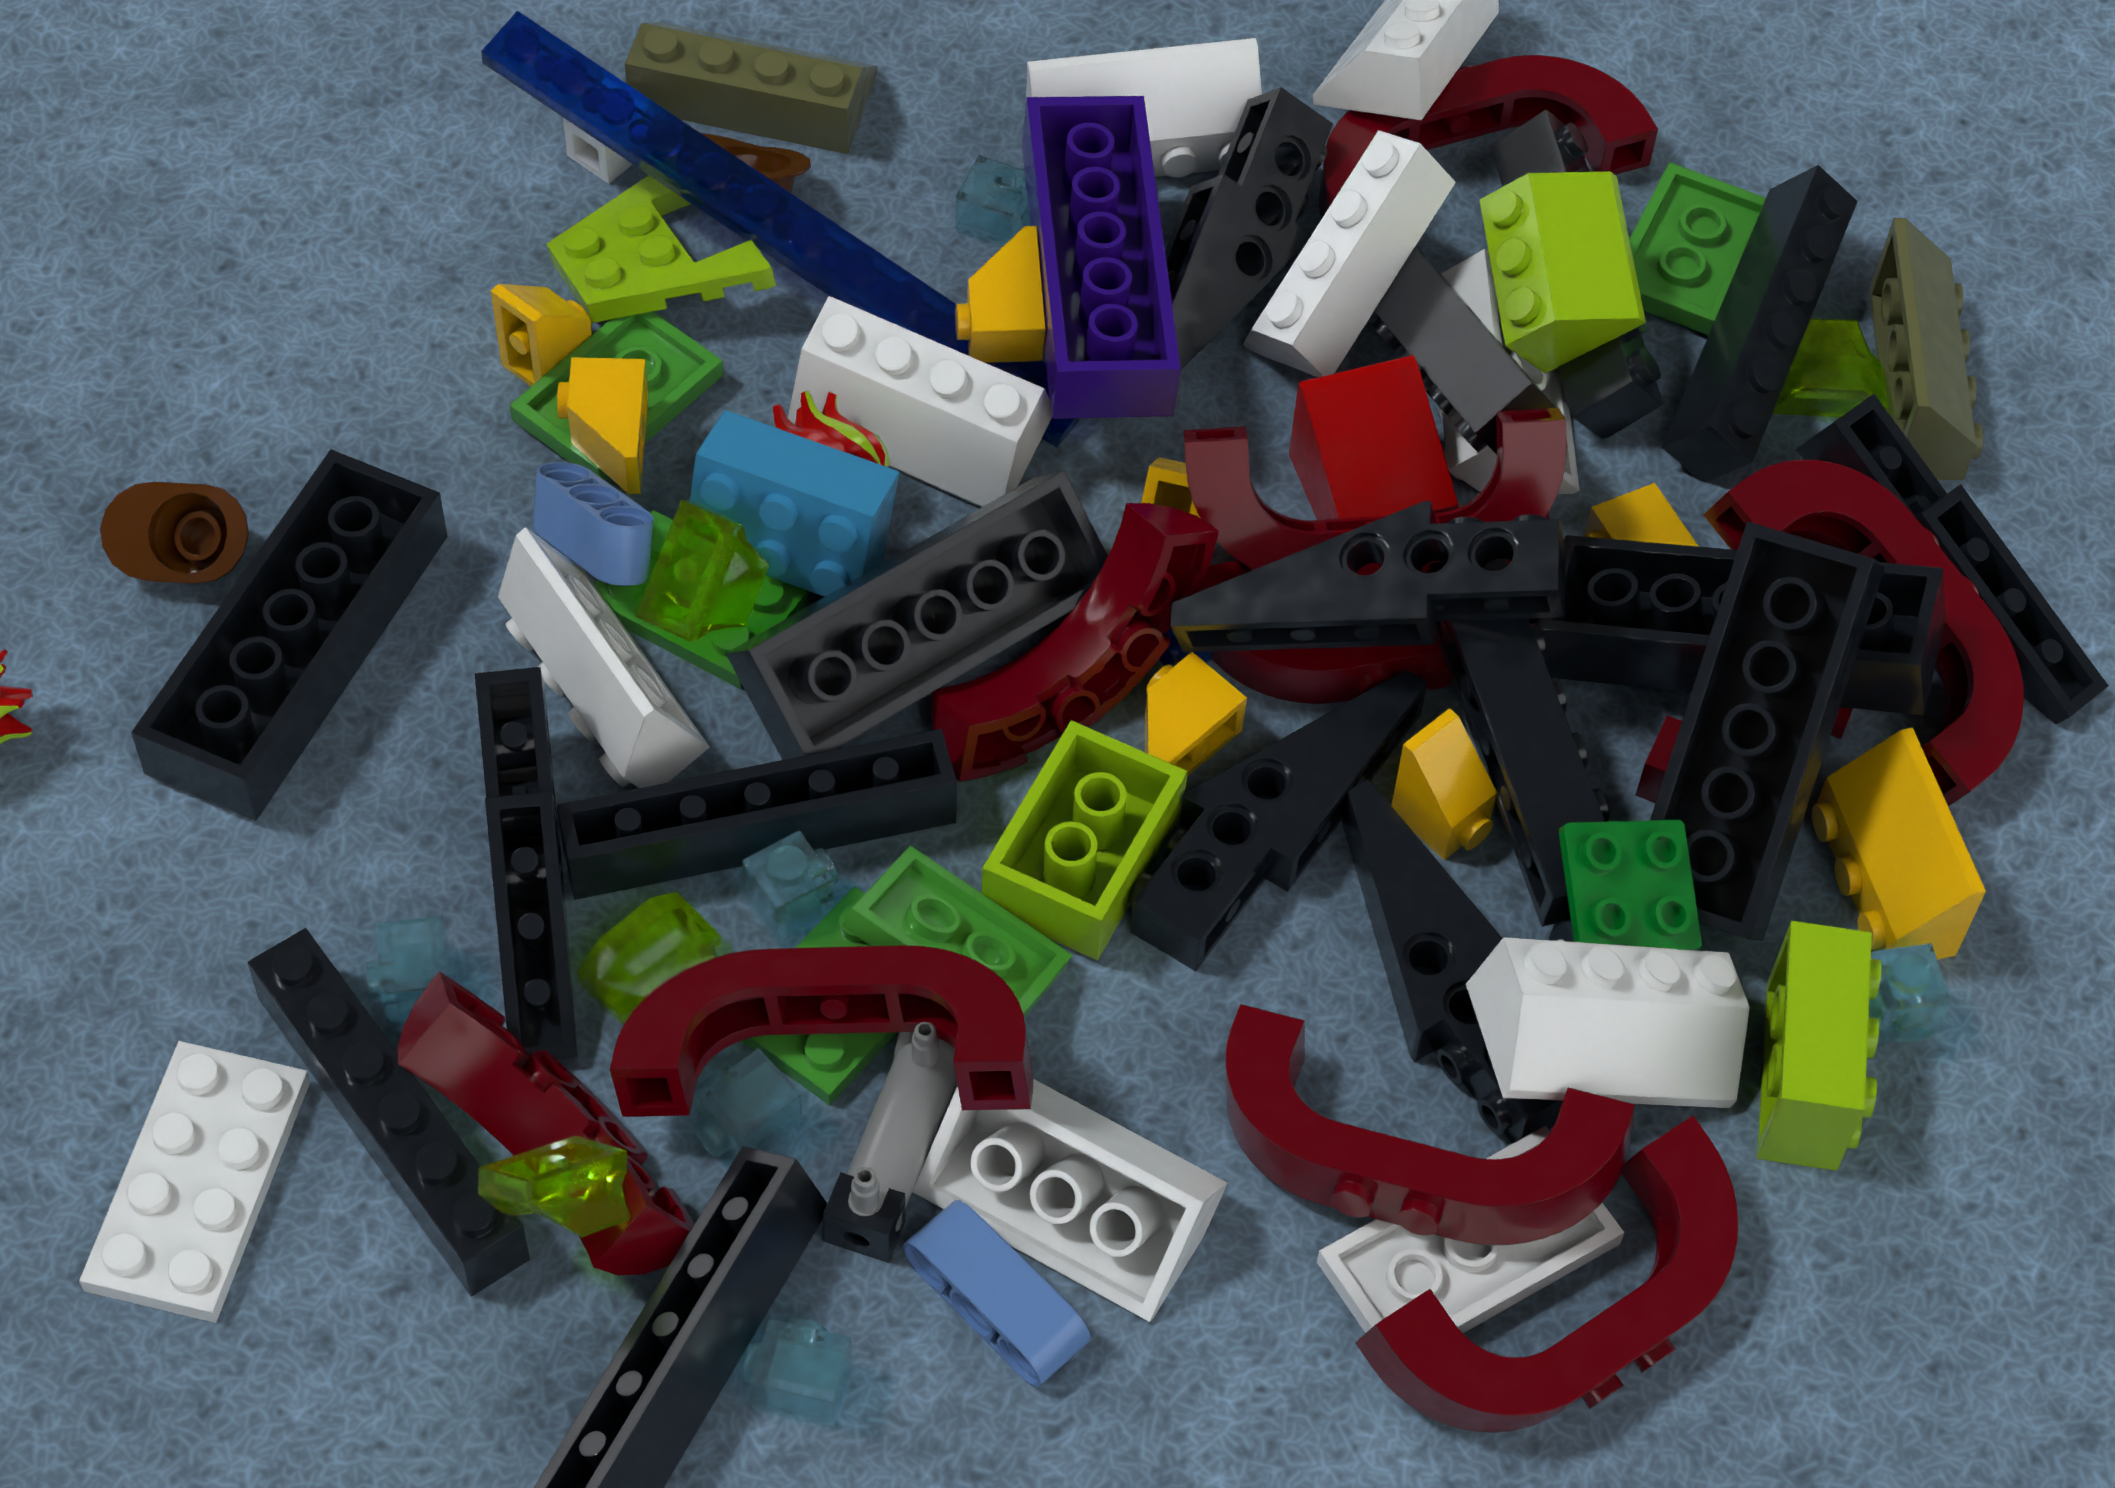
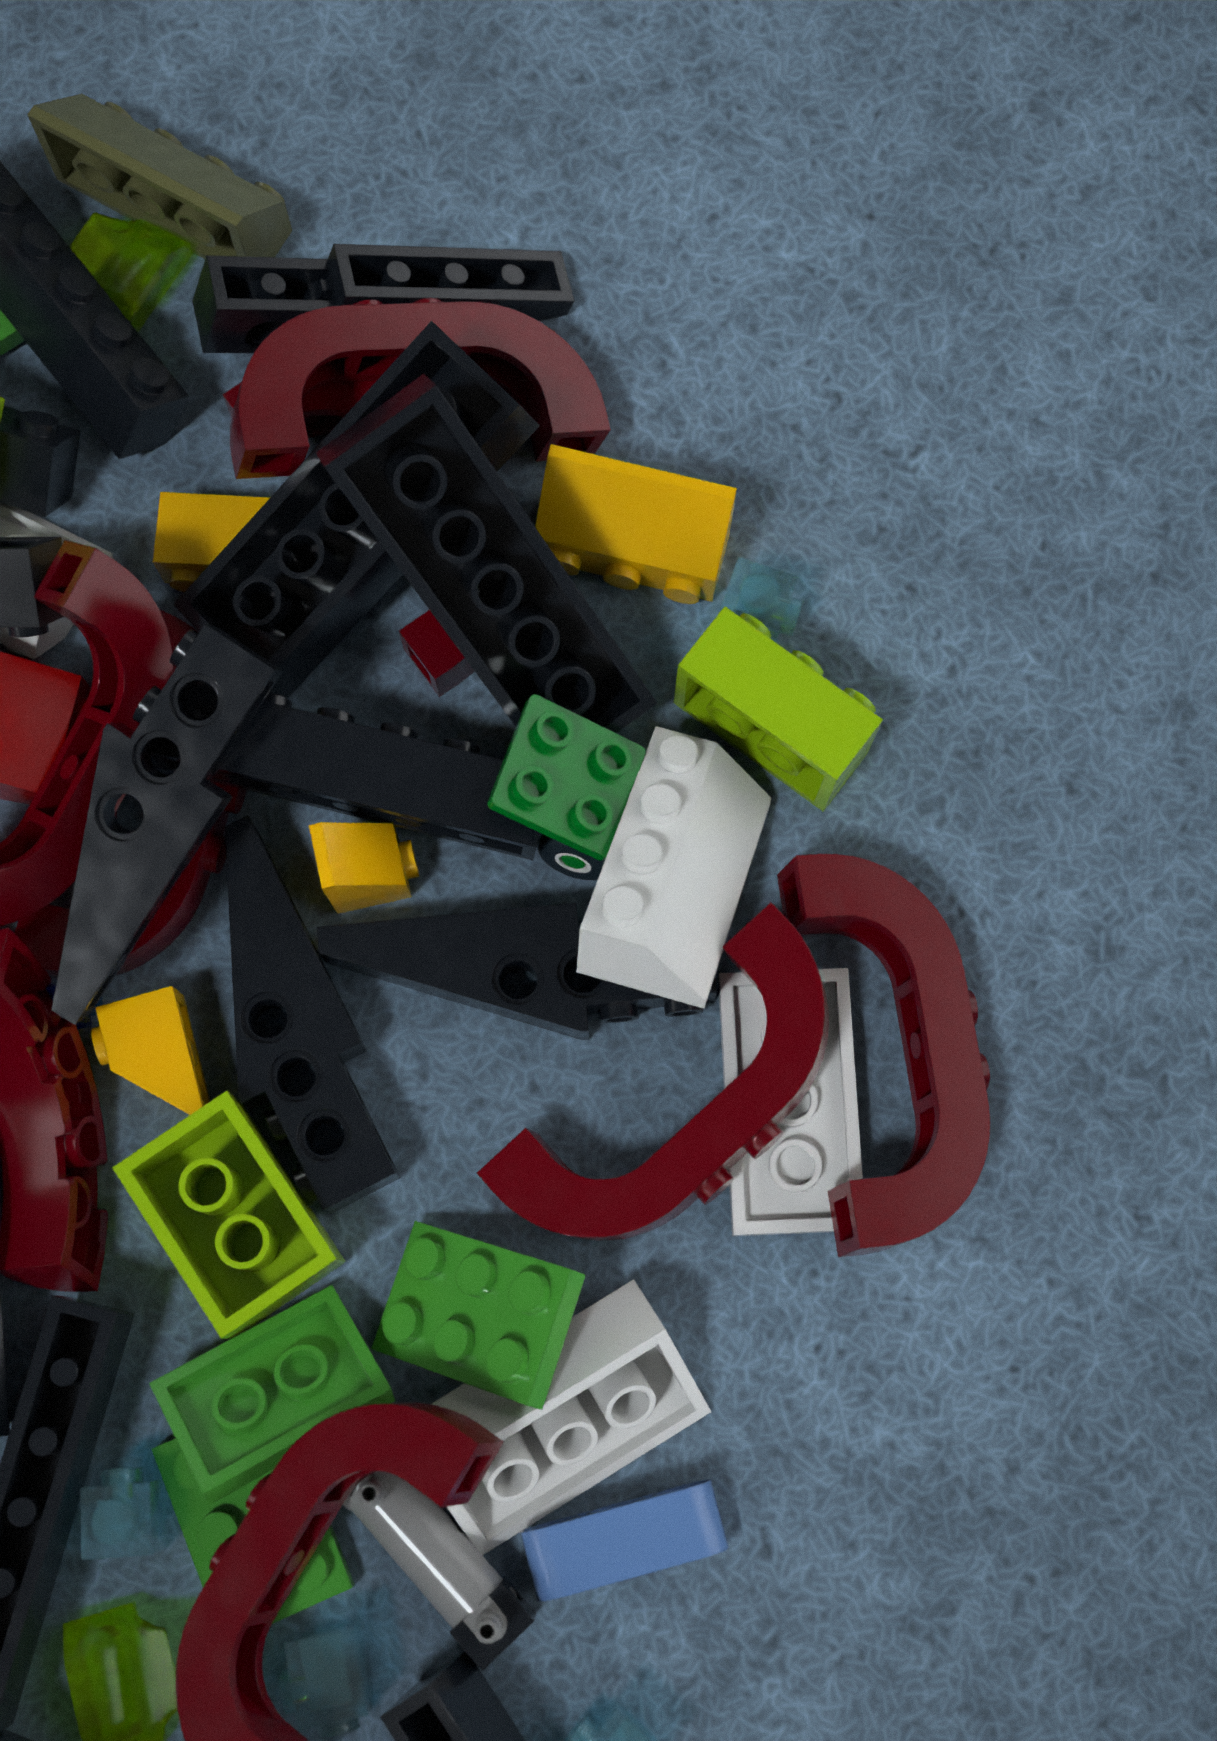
camera: 60 degrees left, 20 degrees up
(1122, 1063) = (479, 1314): none -> bright green plate

